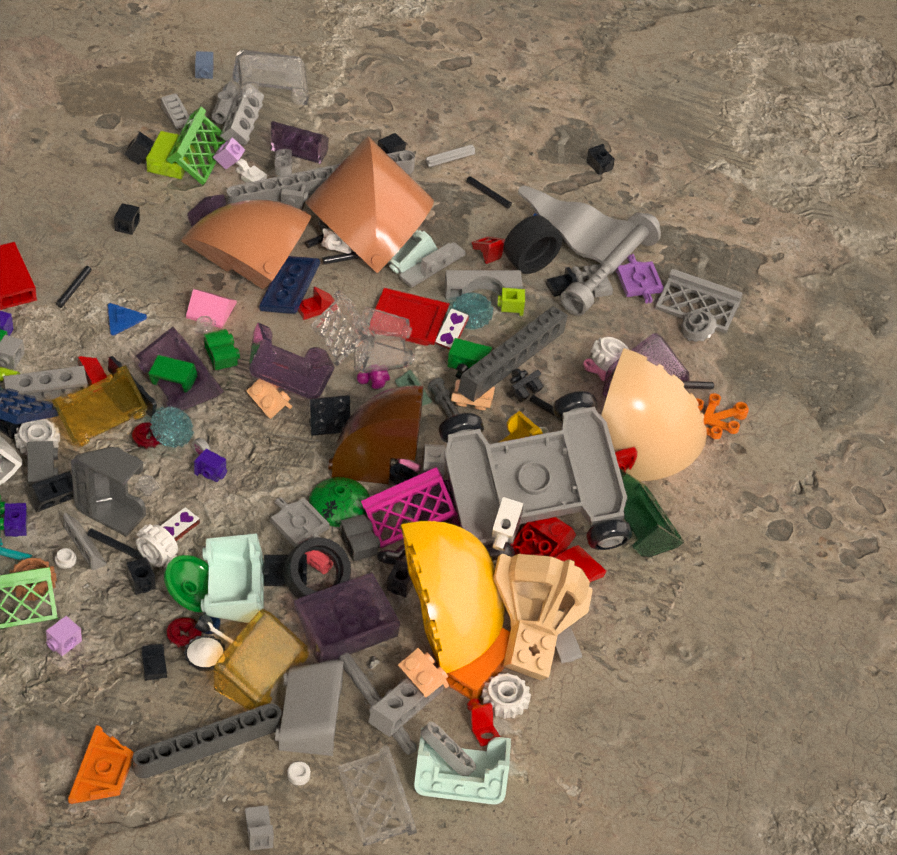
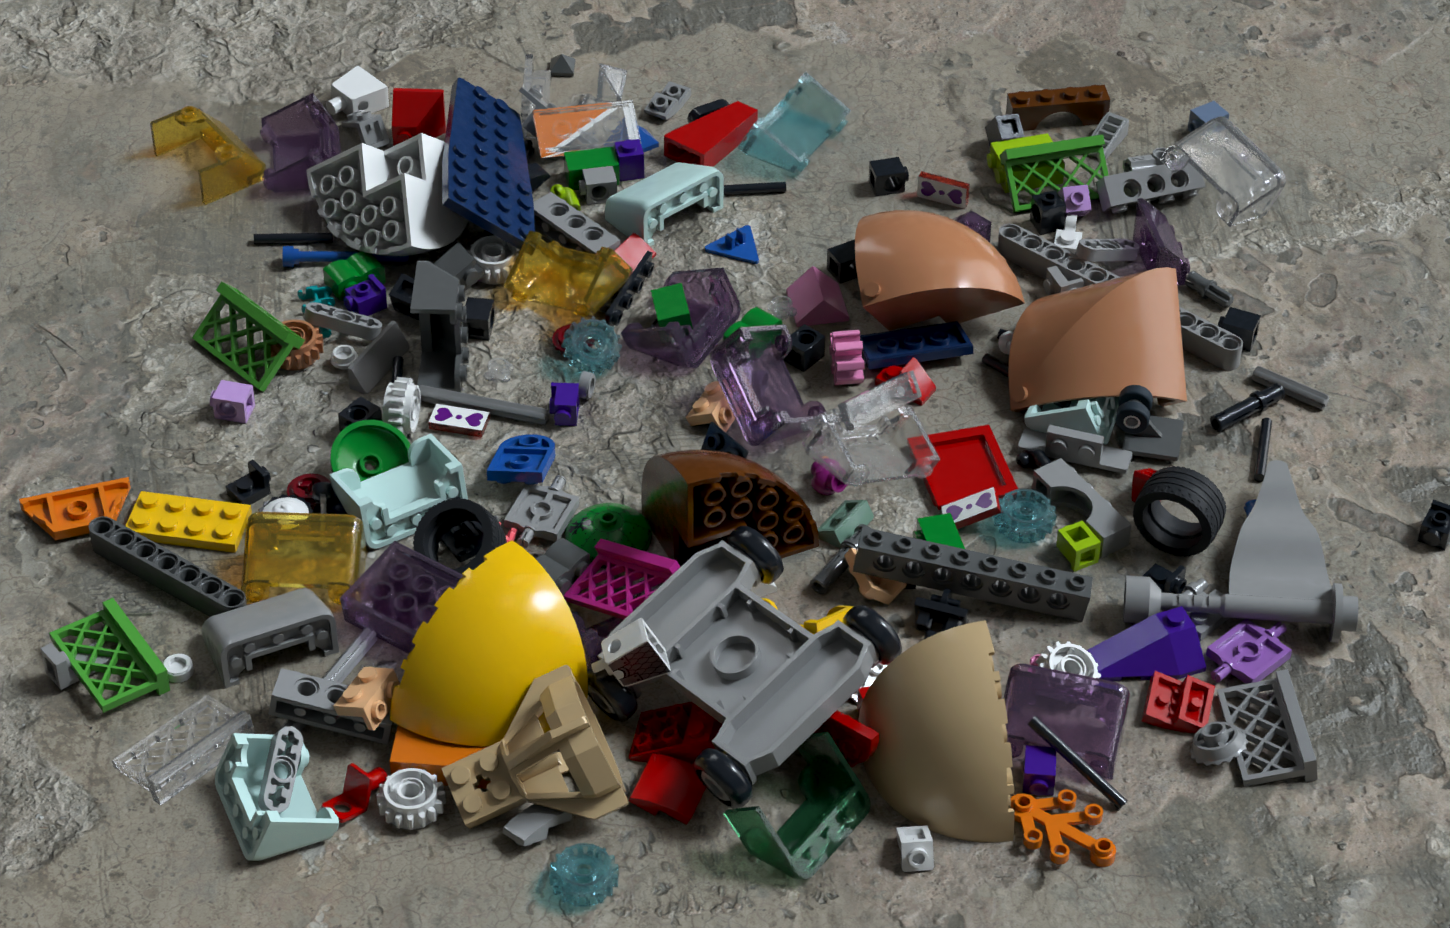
camera: 65 degrees right, 5 degrees down
(32, 542) = (342, 321): none -> light grey beam
(37, 236) = (796, 126): none -> clear light blue windscreen
(57, 328) = (648, 202): none -> light aqua windscreen
(125, 126) = (1086, 102): none -> reddish brown arch
(160, 711) = (189, 521): none -> yellow plate
(162, 201) = (943, 190): none -> tile
(175, 505) = (493, 406): none -> light grey axle
(190, 275) = (842, 262): none -> black brick
(225, 169) = (1047, 212): none -> black brick
(246, 329) = (807, 348): none -> black brick
(250, 509) = (522, 460): none -> blue plate
(268, 788) = (135, 649): none -> bright green fence
(285, 316) = (846, 357): none -> bright pink gear
(346, 142) = (1209, 289): none -> dark grey axle
(427, 282) = (1032, 458): none -> black arm
(444, 225) = (1144, 433): none -> dark grey plate
(453, 174) = (1254, 403): none -> black pin
(613, 312) = (1159, 643): none -> dark purple wedge
(621, 639) = (584, 874): none -> clear light blue gear
(654, 321) = (1178, 704): none -> red slope
(691, 481) = (915, 848): none -> white bracket

